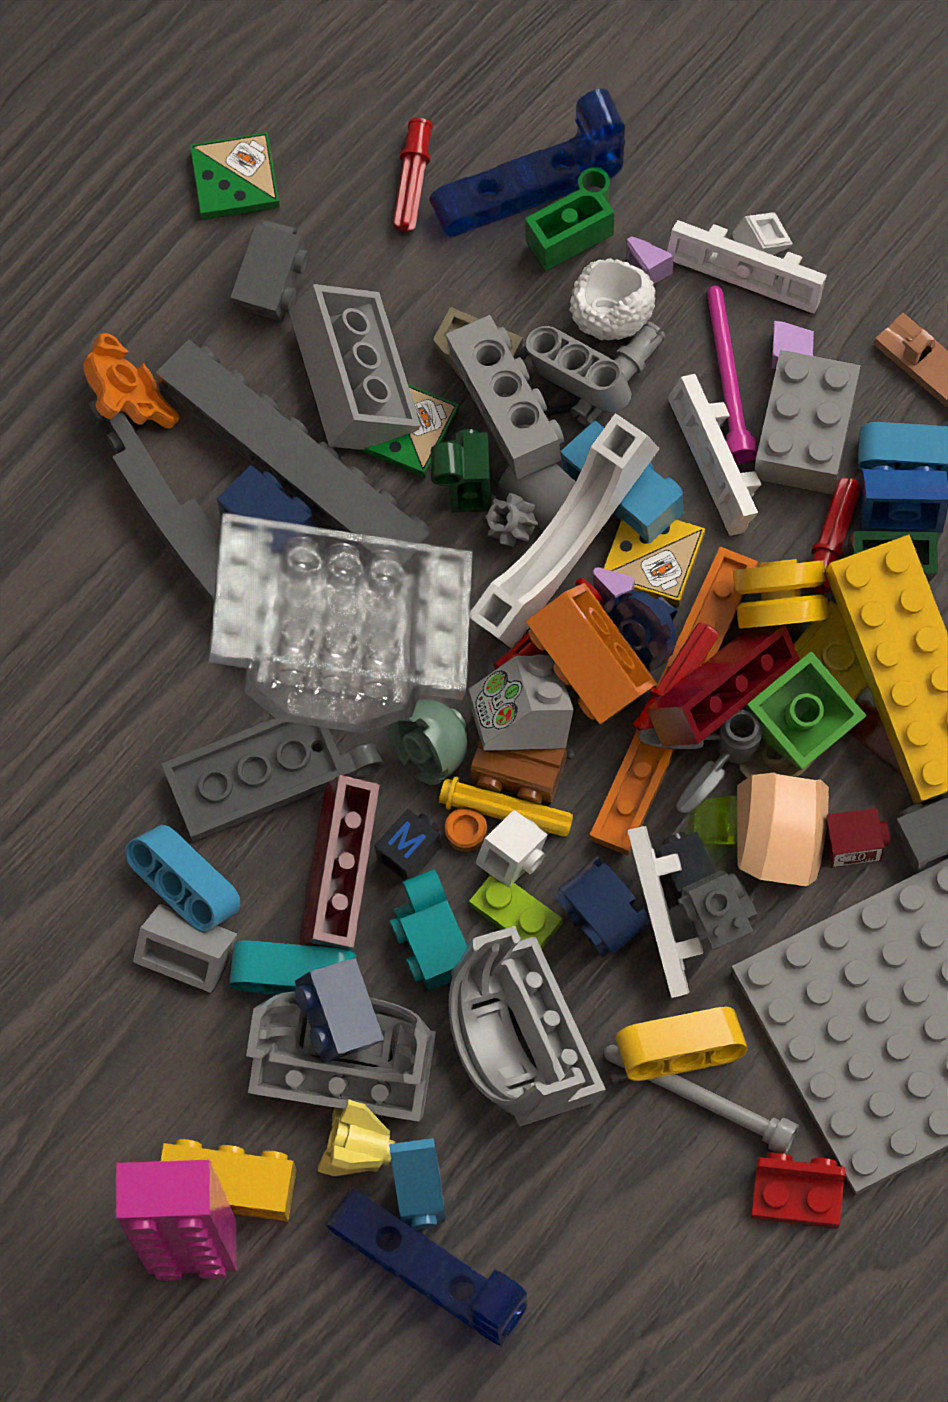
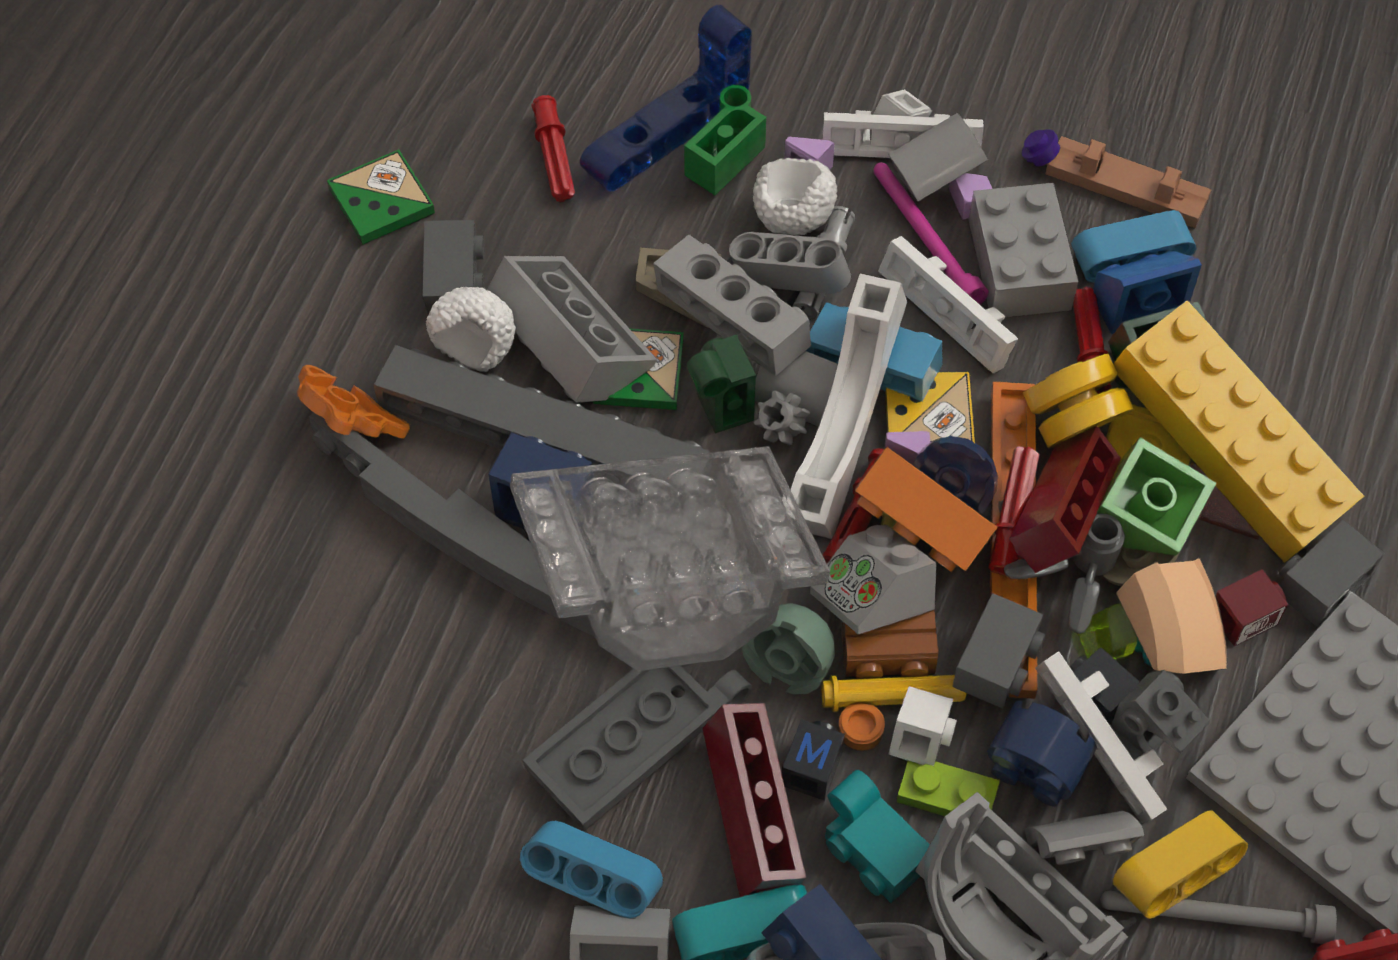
camera: 25 degrees left, 10 degrees down
(263, 343) = (472, 327): none -> white hair
(604, 805) = (998, 651): none -> dark grey brick
(622, 993) = (1073, 837): none -> light grey slope
(764, 302) = (937, 157): none -> light grey brick
(876, 318) = (1041, 147): none -> dark purple plate

